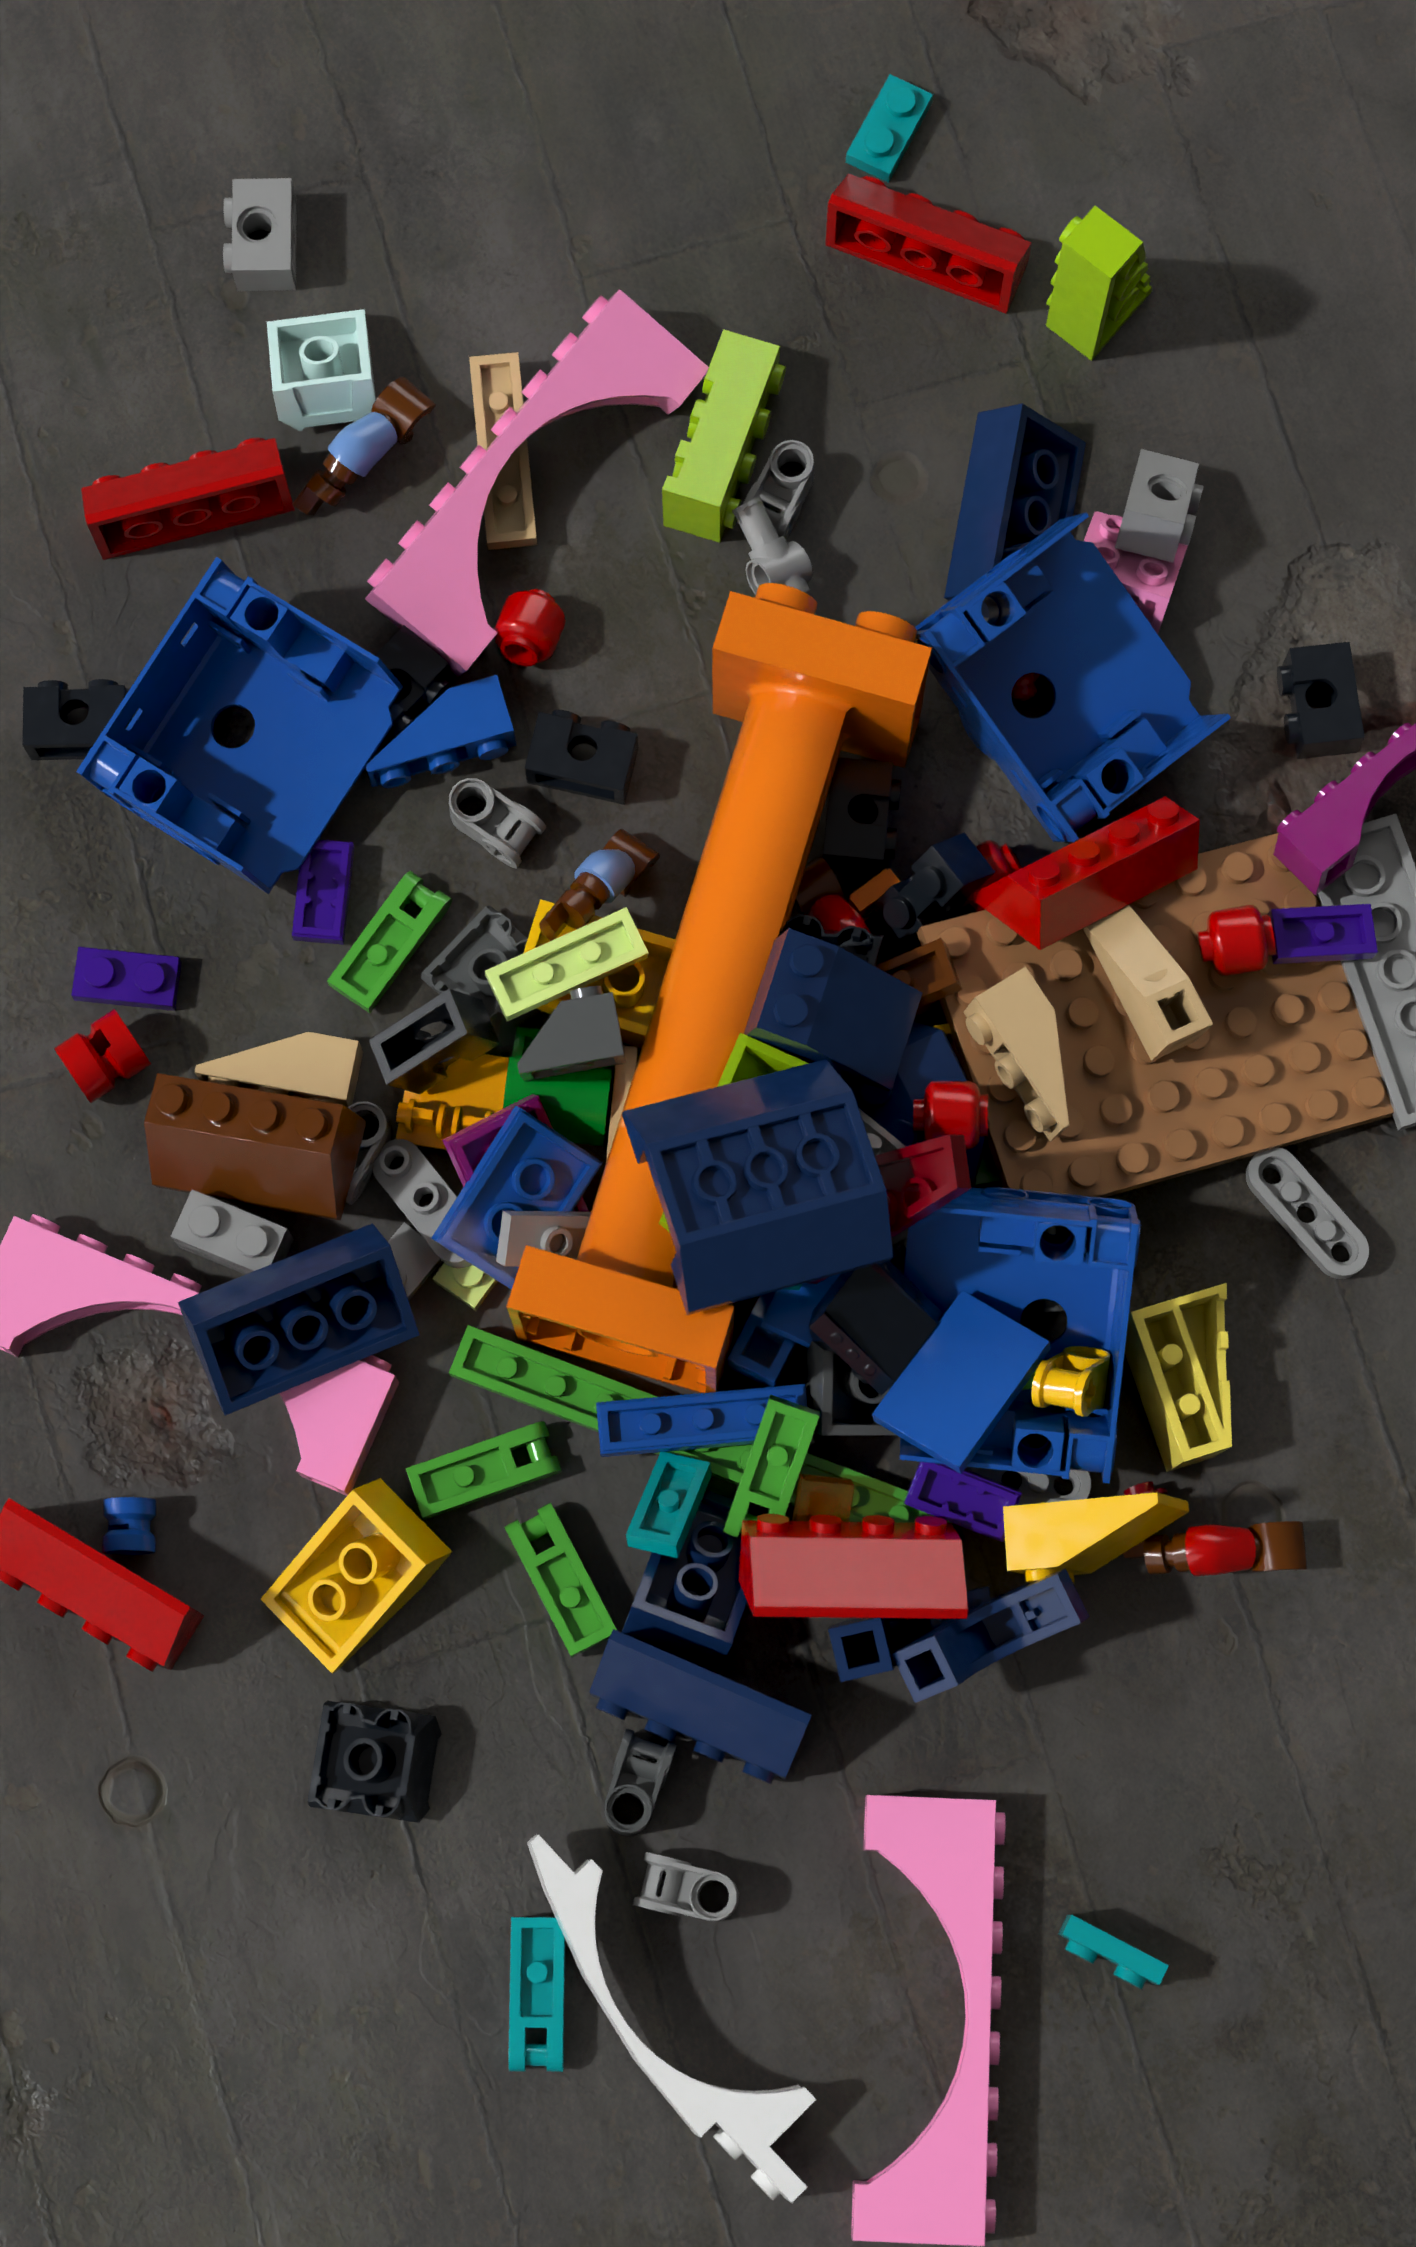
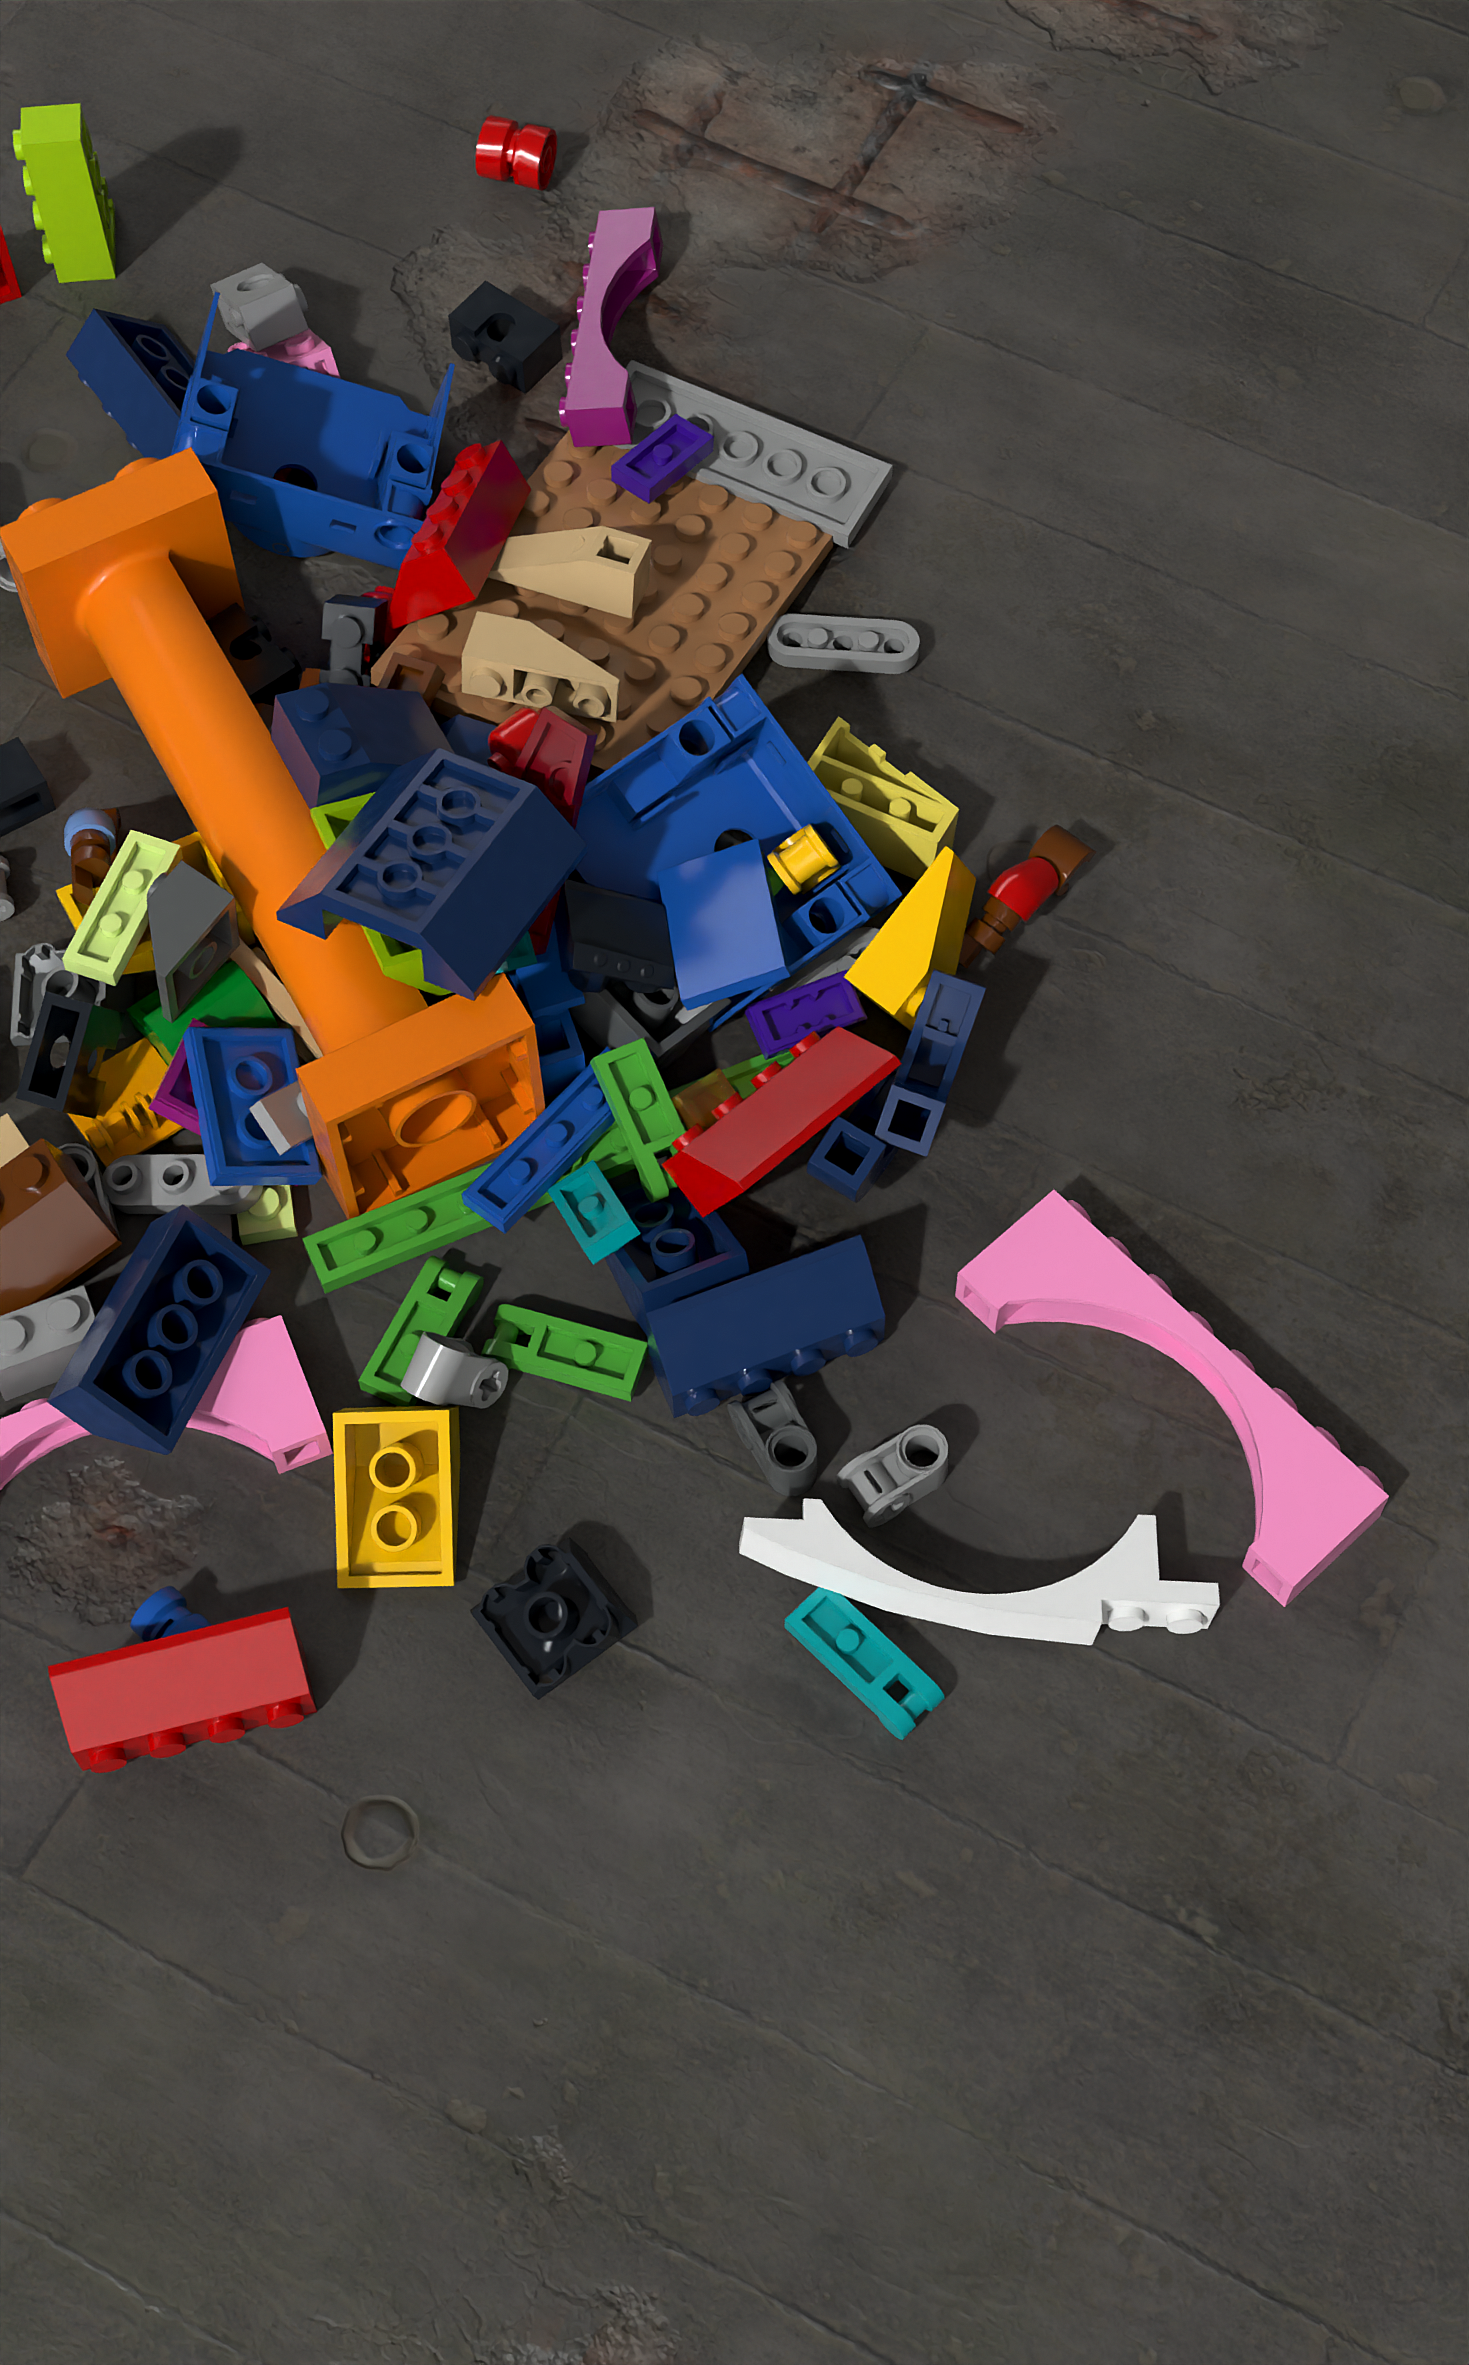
camera: 45 degrees left, 15 degrees down
(463, 1530) = (451, 1373): none -> light grey piece
(1132, 1964) = (1258, 1216): teal plate -> none
(1237, 940) = (610, 497): red head -> none

